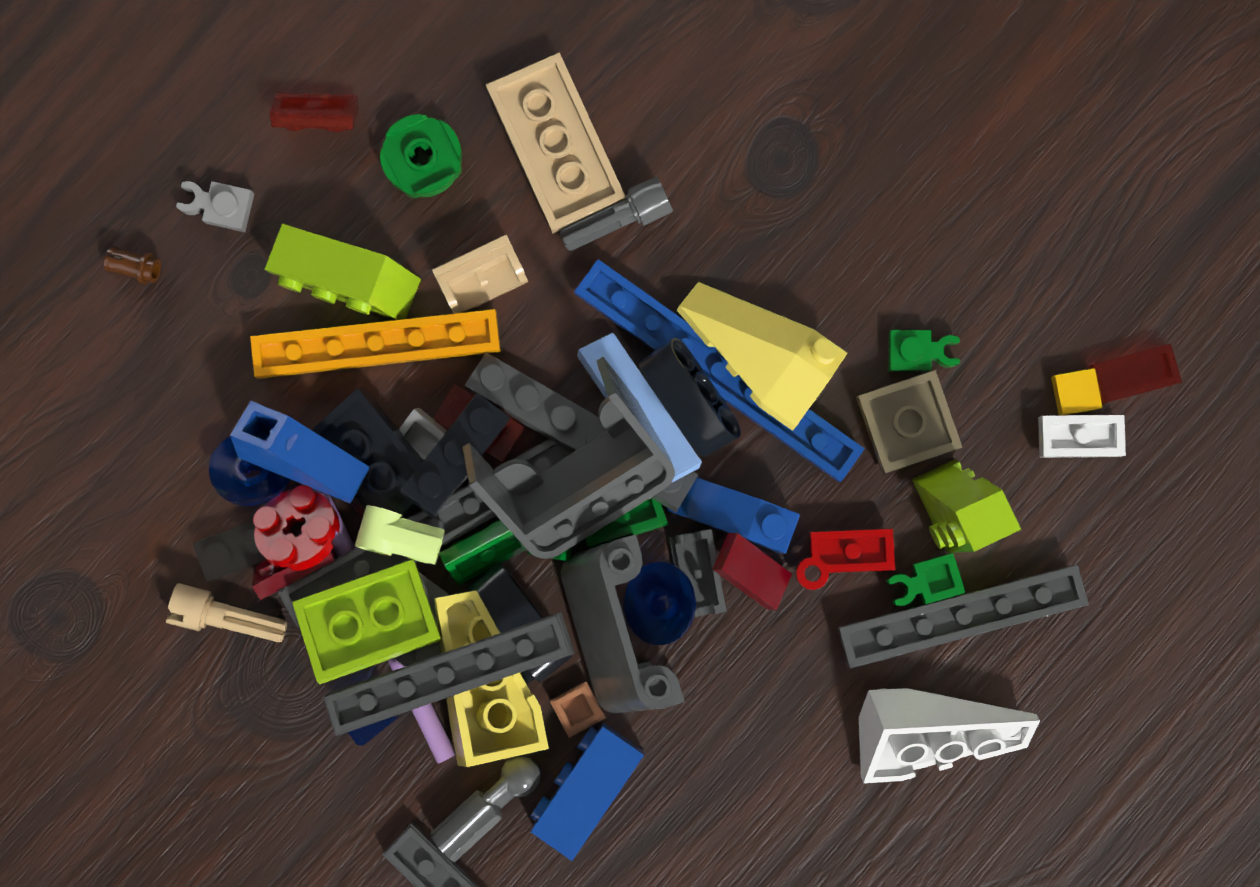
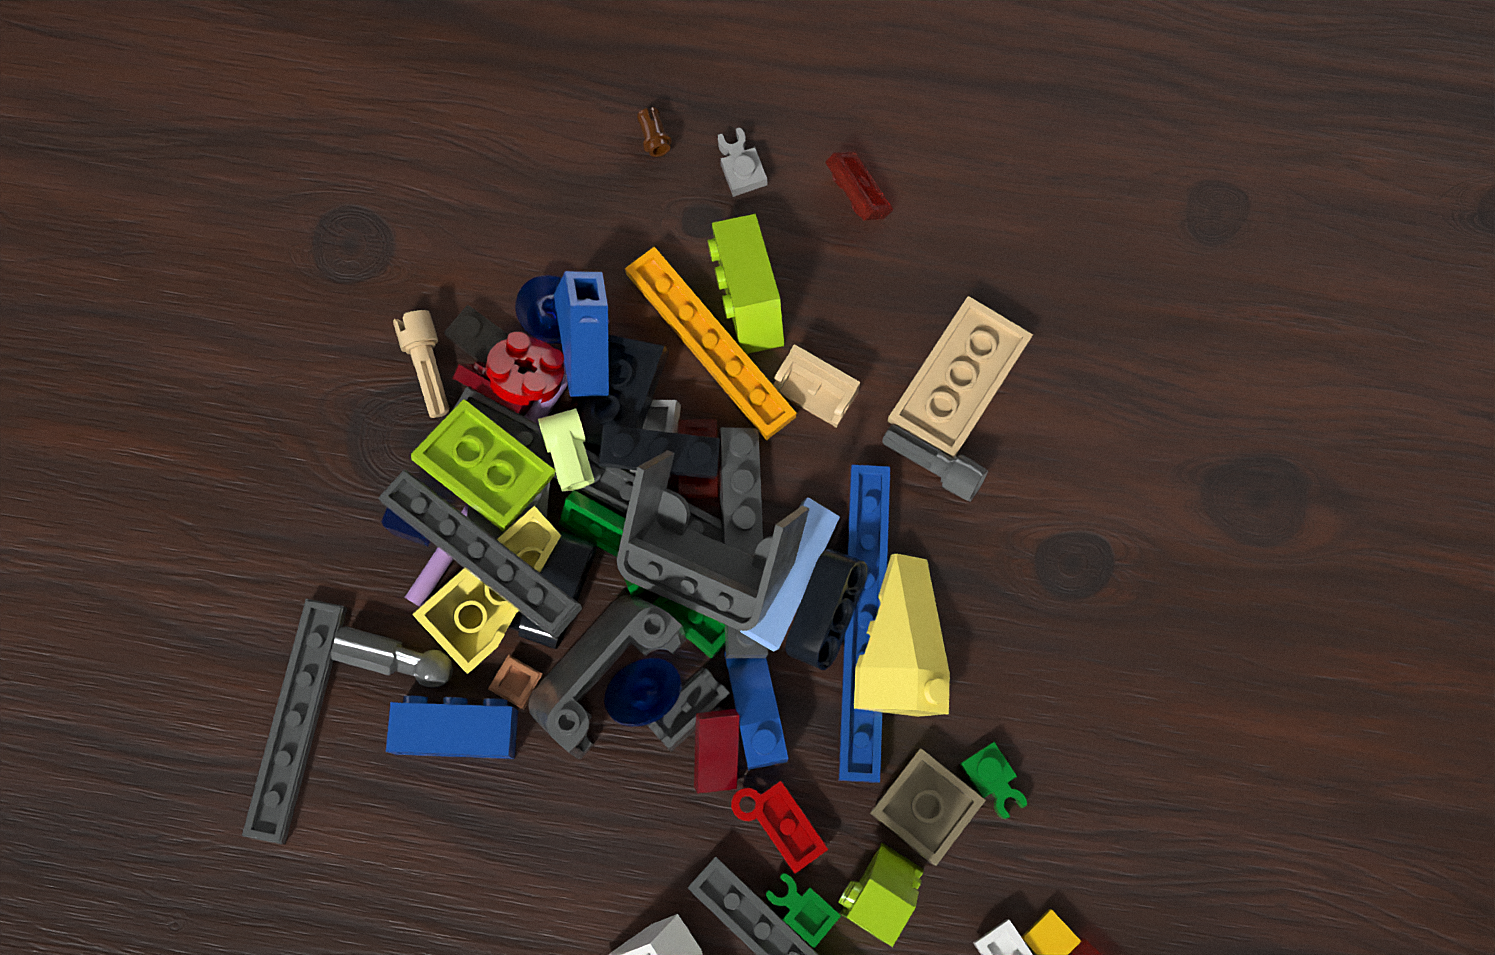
camera: 65 degrees right, 10 degrees down
(431, 135) = (881, 305): green plate -> none

